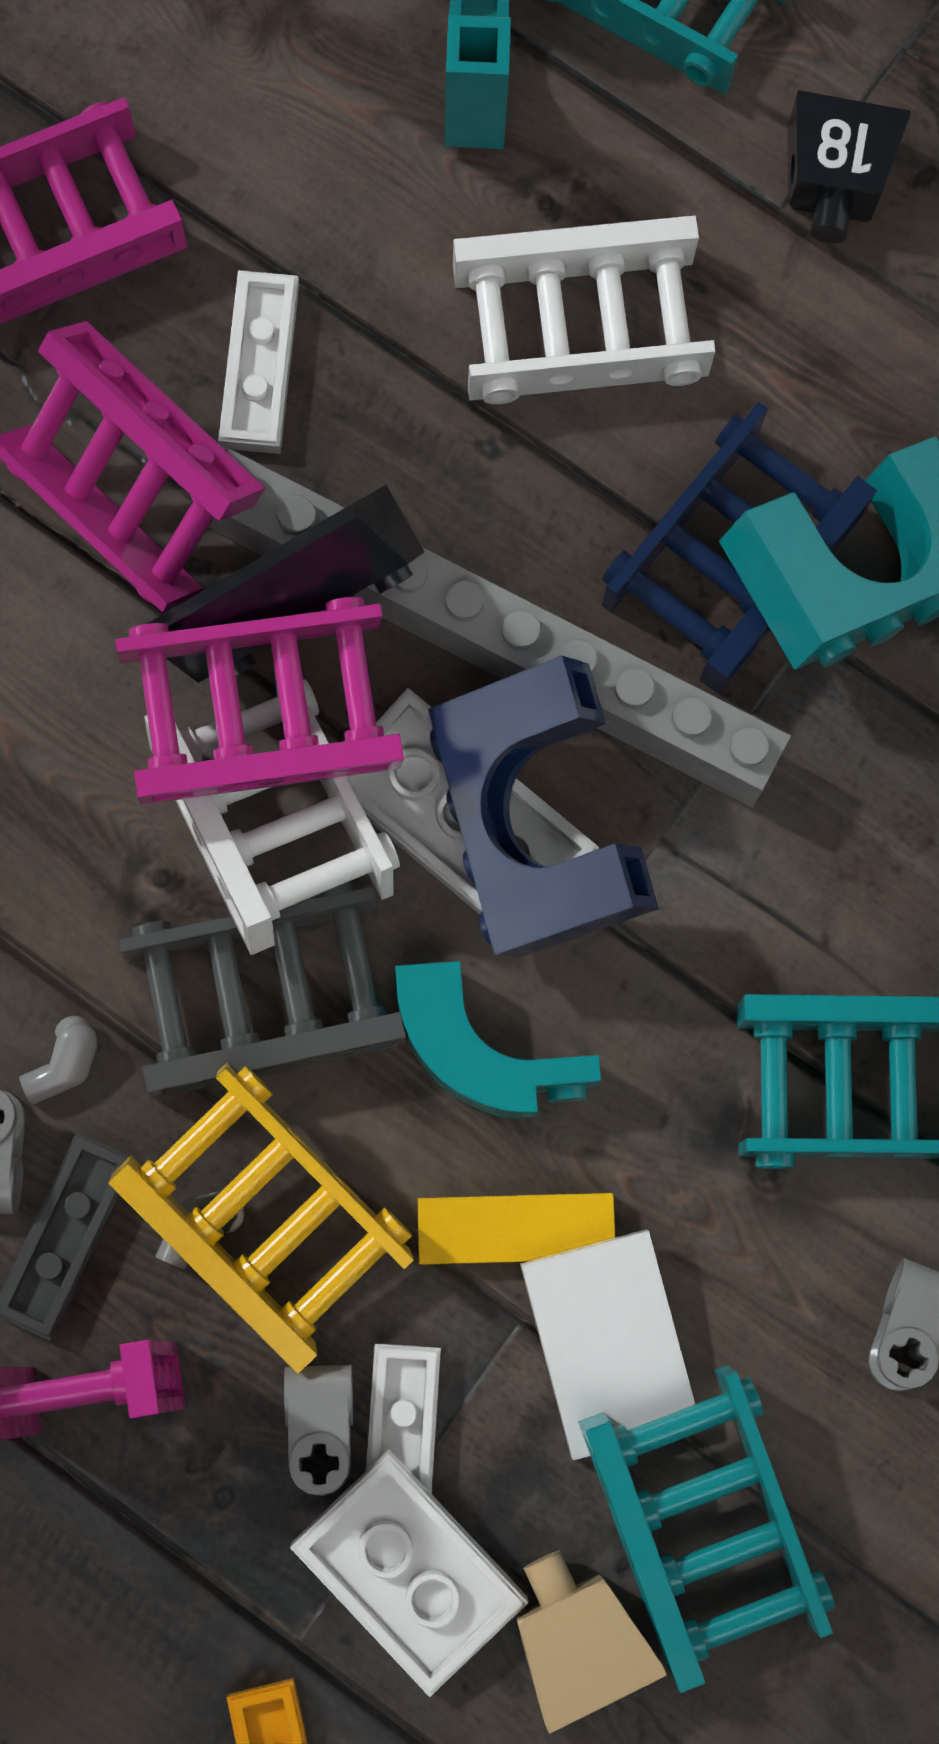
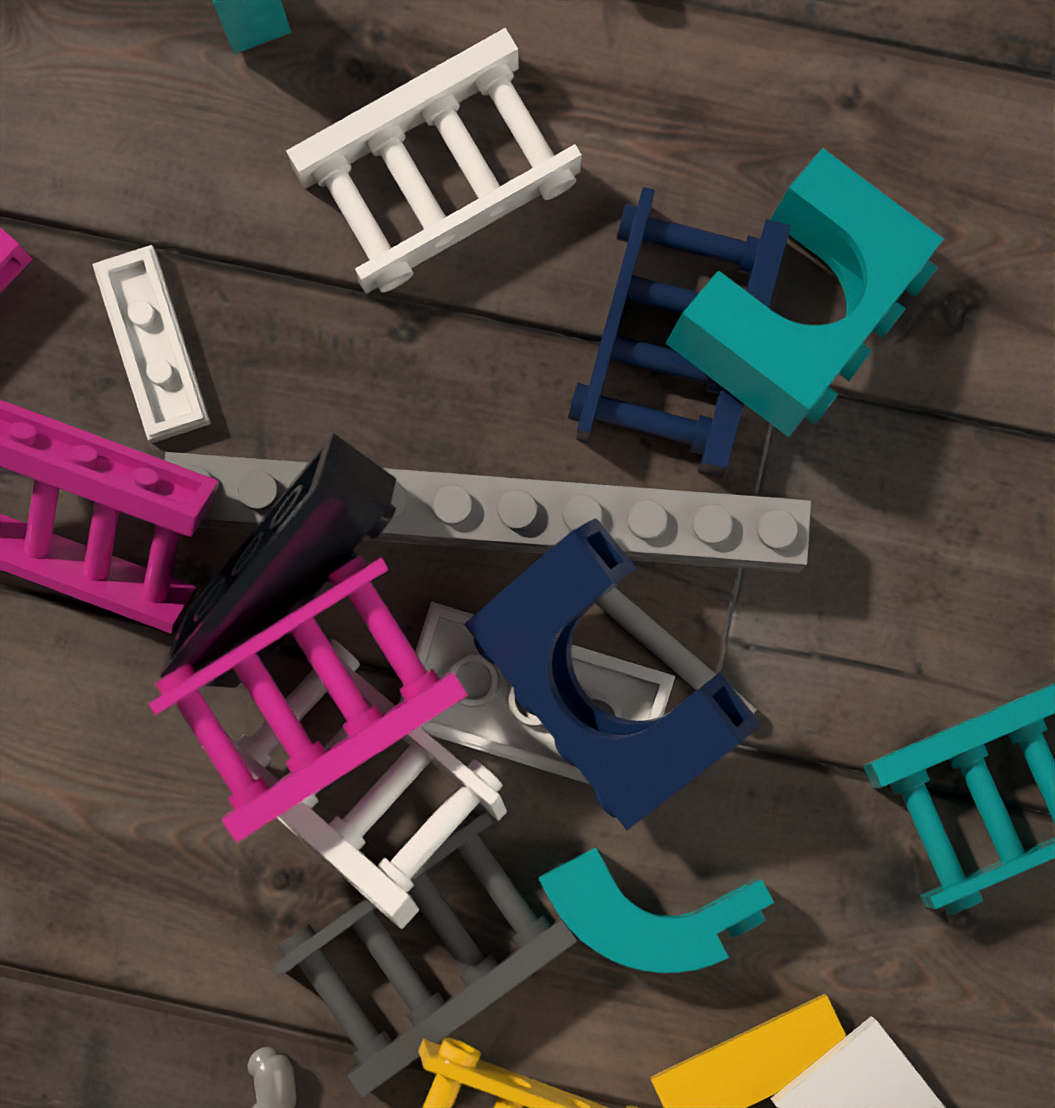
camera: 15 degrees left, 5 degrees up
(592, 800) = (658, 640): none -> light grey bar

